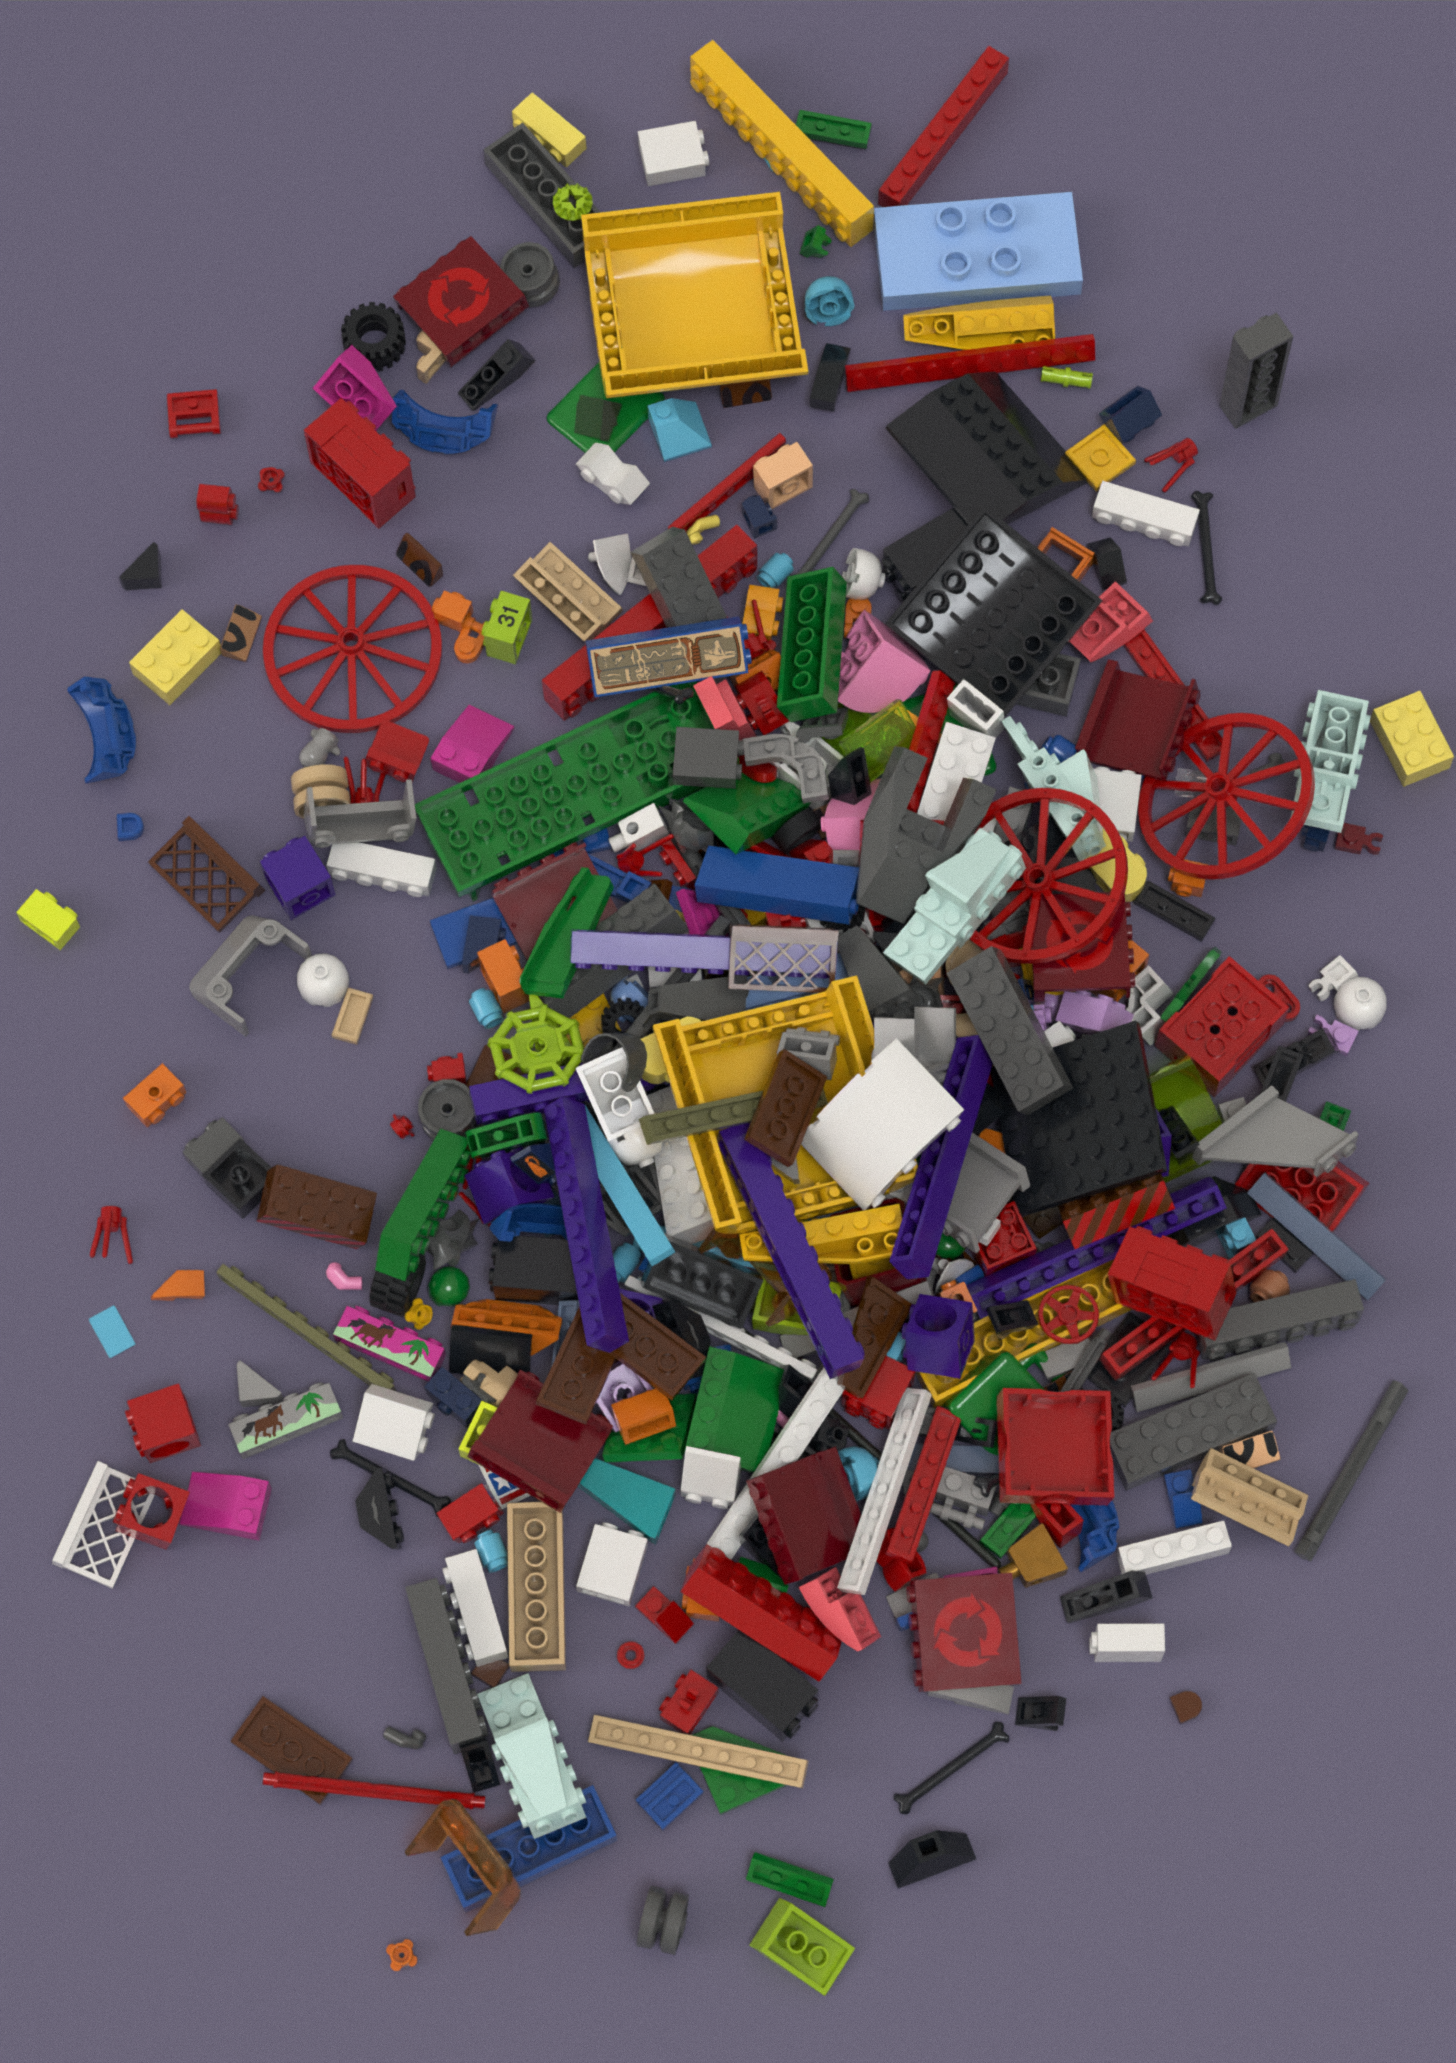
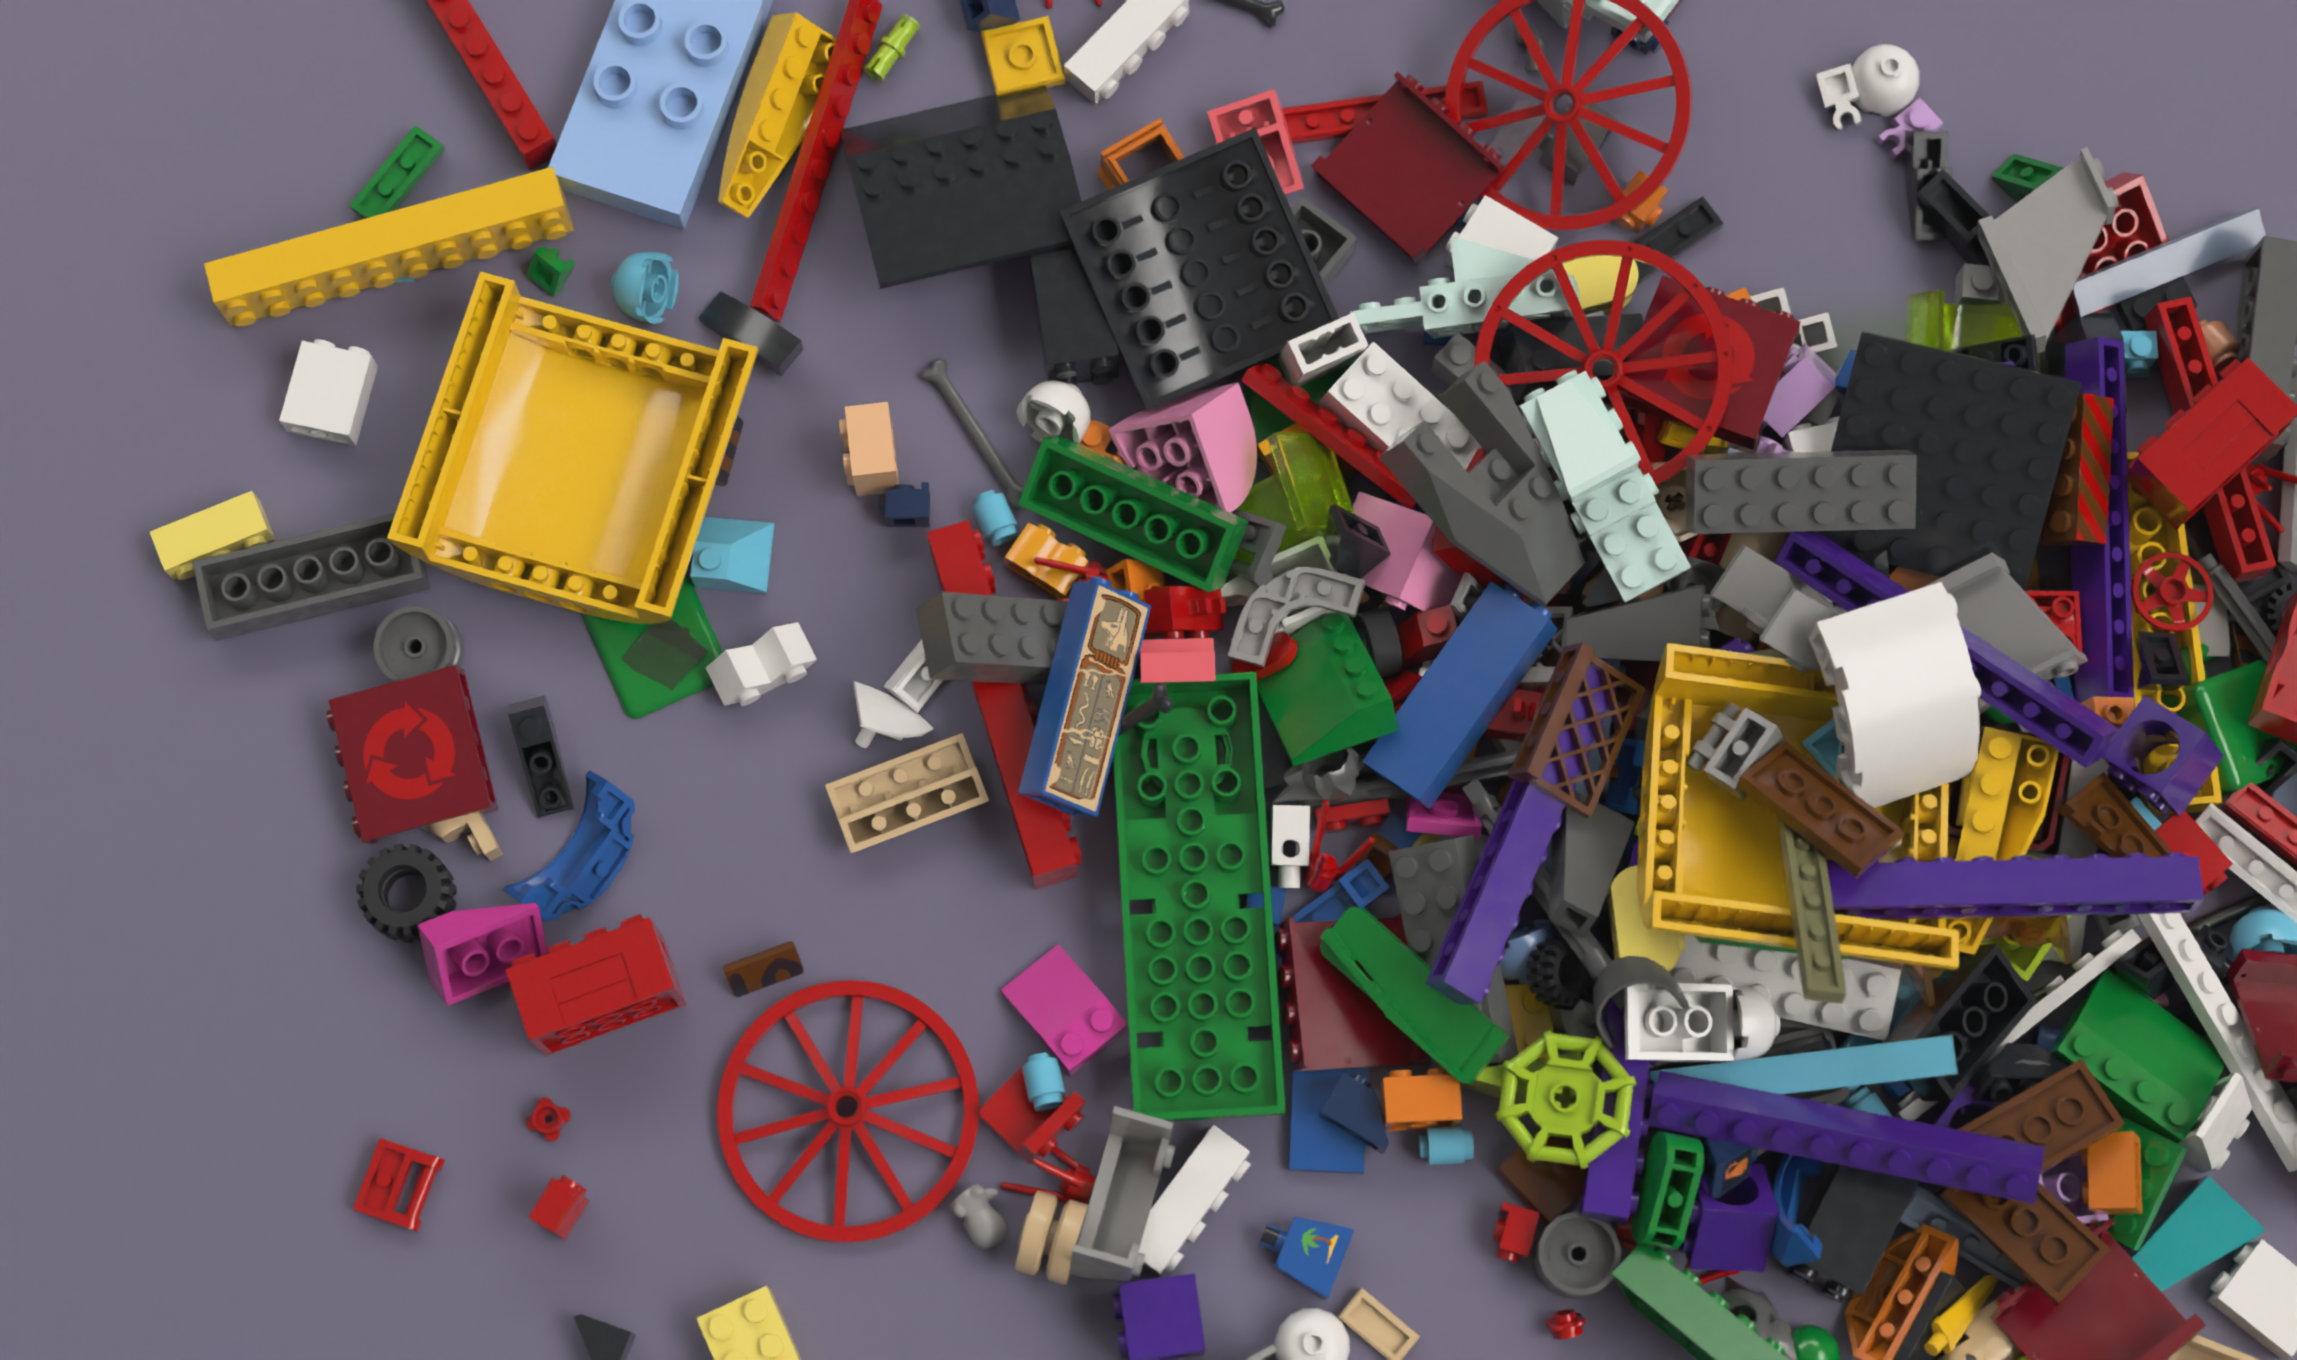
camera: 70 degrees left, 5 degrees up
(240, 633) = (759, 1252): medium nougat slope -> none
(380, 953) = (1309, 1252): none -> blue torso
(418, 748) = (1043, 1081): none -> medium azure brick
(452, 610) = (858, 954): orange brick -> none
(466, 647) = (916, 959): orange plate -> none
(505, 1358) = (1955, 1320): none -> yellow bar
(507, 627) = (923, 891): lime brick -> none
(565, 208) = (356, 558): lime gear -> none
(700, 525) = (885, 584): light yellow arm -> none
(707, 757) = (1243, 709): dark grey brick -> none
(727, 487) = (849, 528): red tile -> none
(1060, 747) = (1404, 279): blue head -> none
(1108, 562) = (1177, 109): black slope -> none
(1191, 984) = (1788, 268): green tile -> none
(1240, 1036) = (1836, 253): red container -> none
(1283, 994) = (1836, 169): red plate -> none

